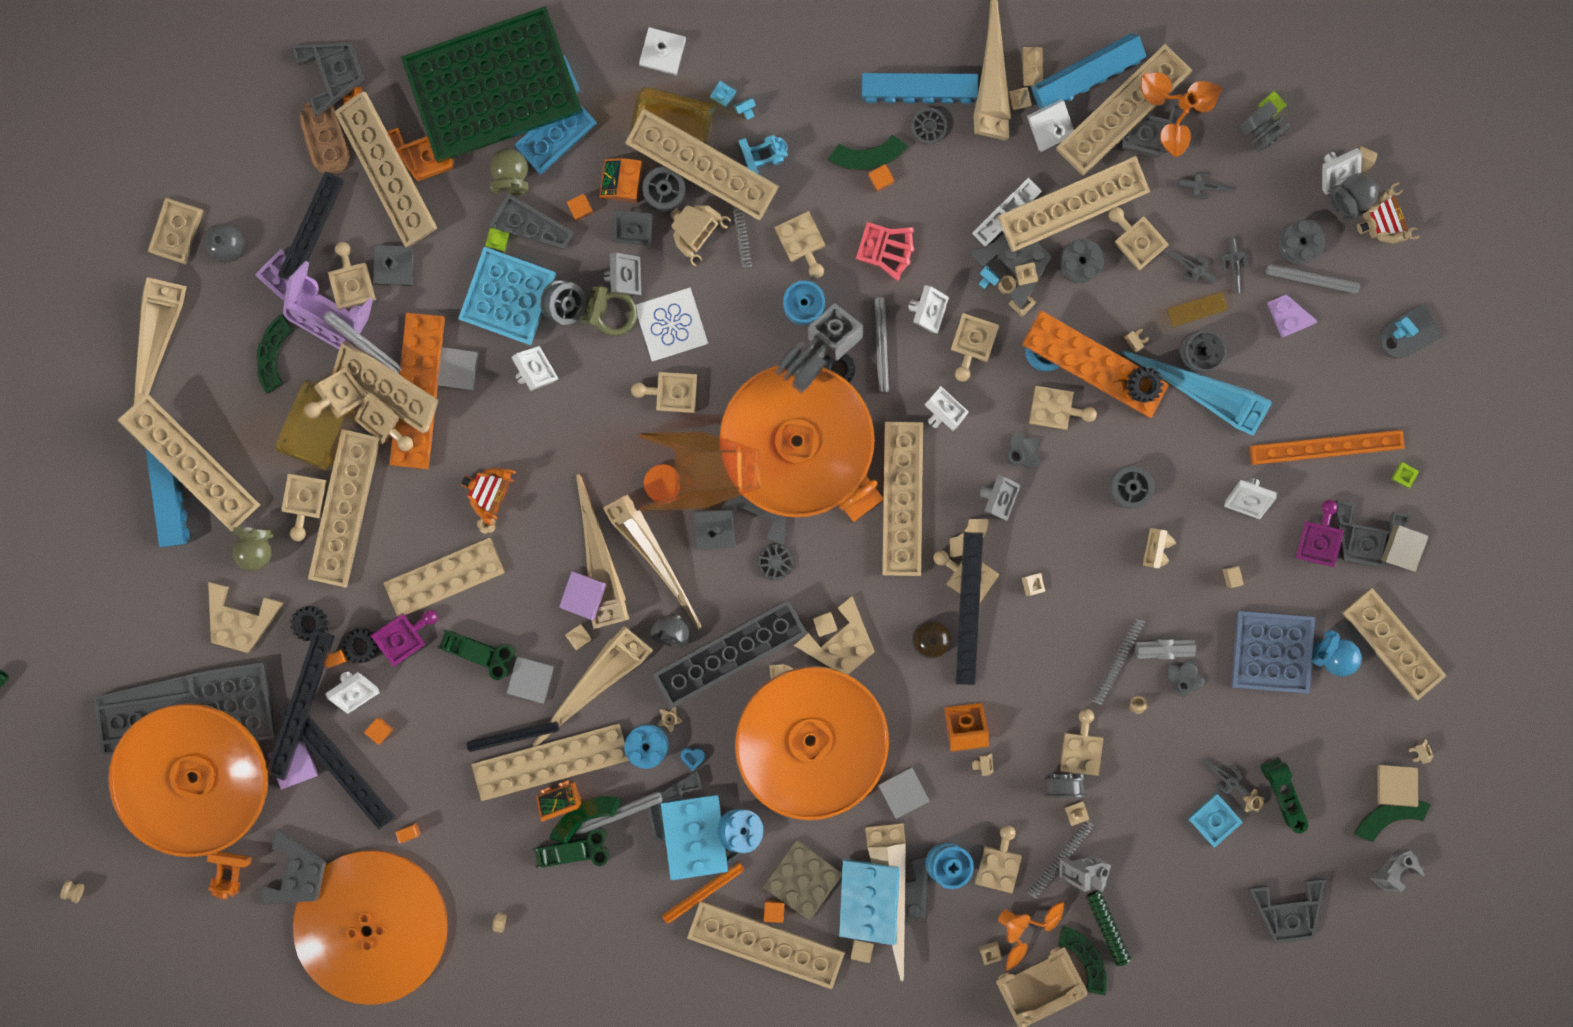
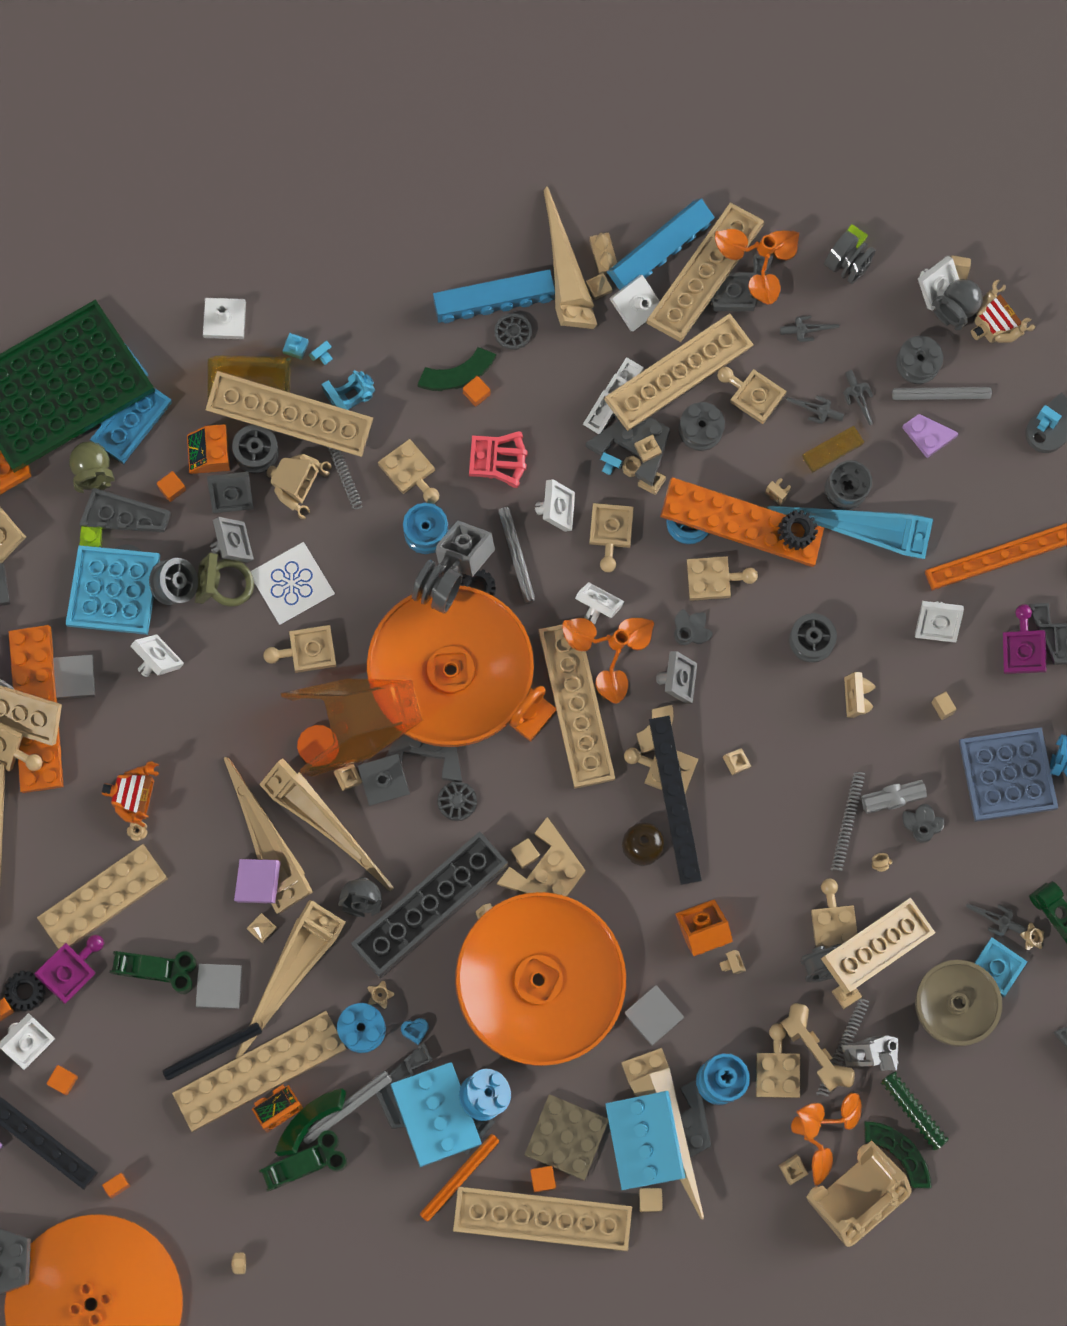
camera: 15 degrees left, 15 degrees down
(682, 518) = (347, 777): none -> tan tile
(970, 446) = (632, 631): none -> orange plant
(1044, 885) = (829, 1074): none -> tan plate
(1115, 784) = (877, 946): none -> tan plate
(1172, 846) = (958, 1003): none -> dark tan dish

